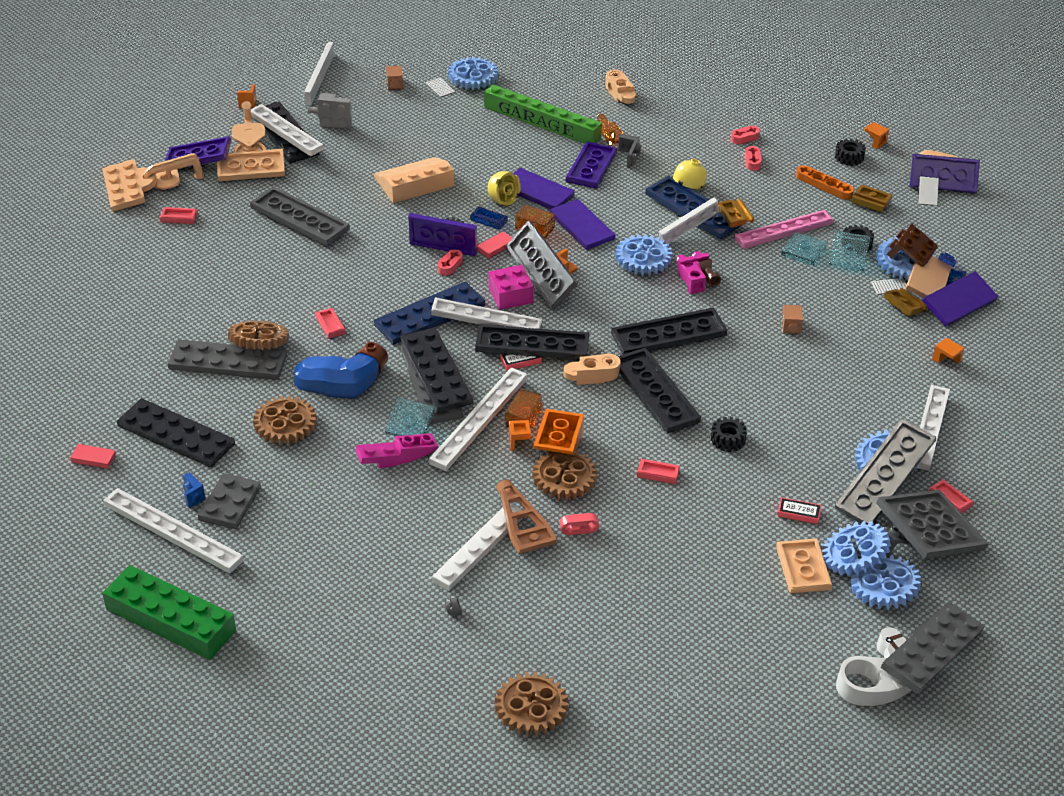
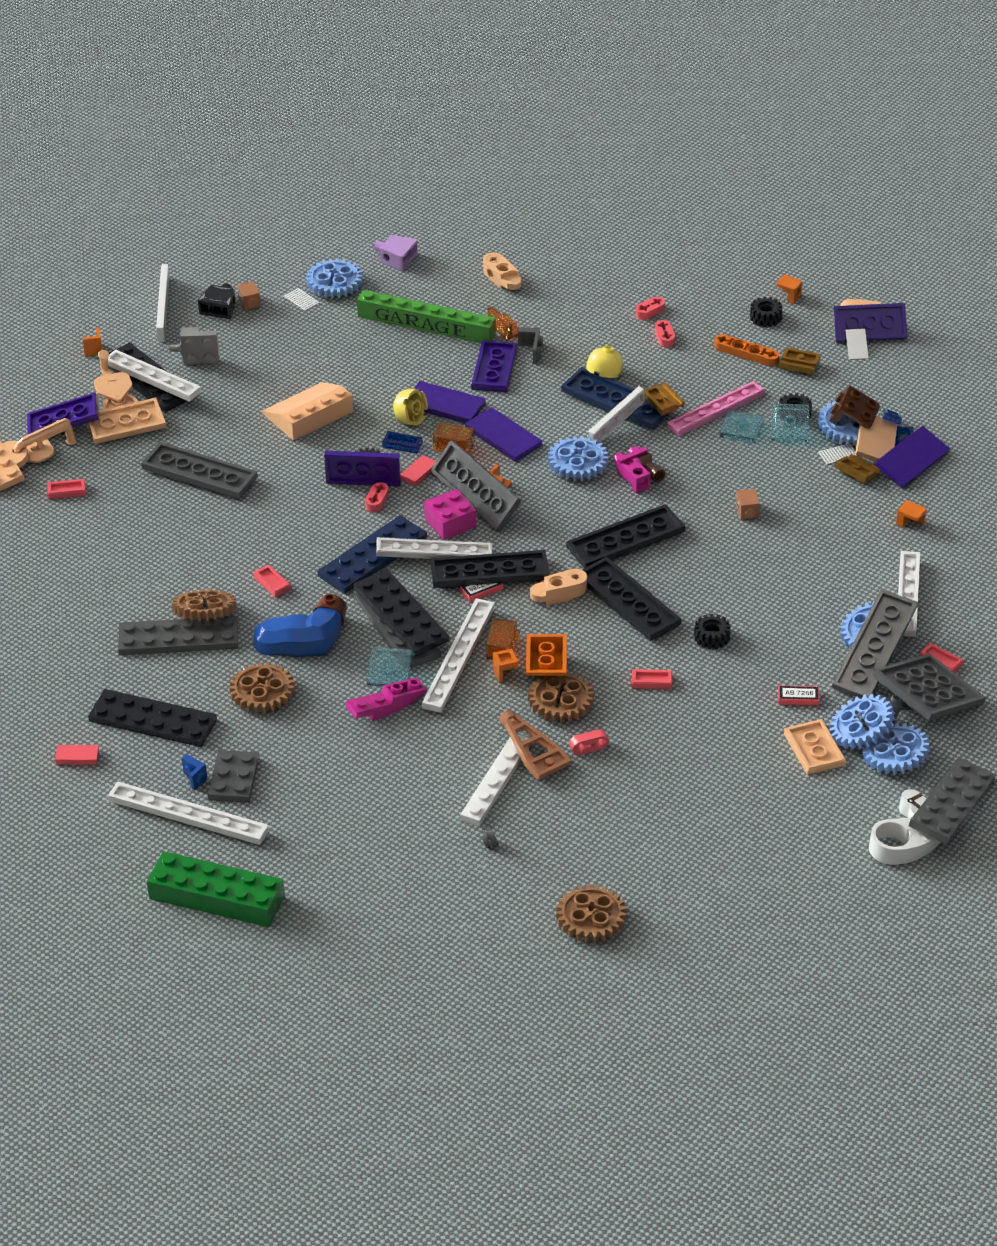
camera: 10 degrees left, 0 degrees up
(366, 78) = (217, 301): none -> black torso
(534, 58) = (397, 251): none -> lavender torso

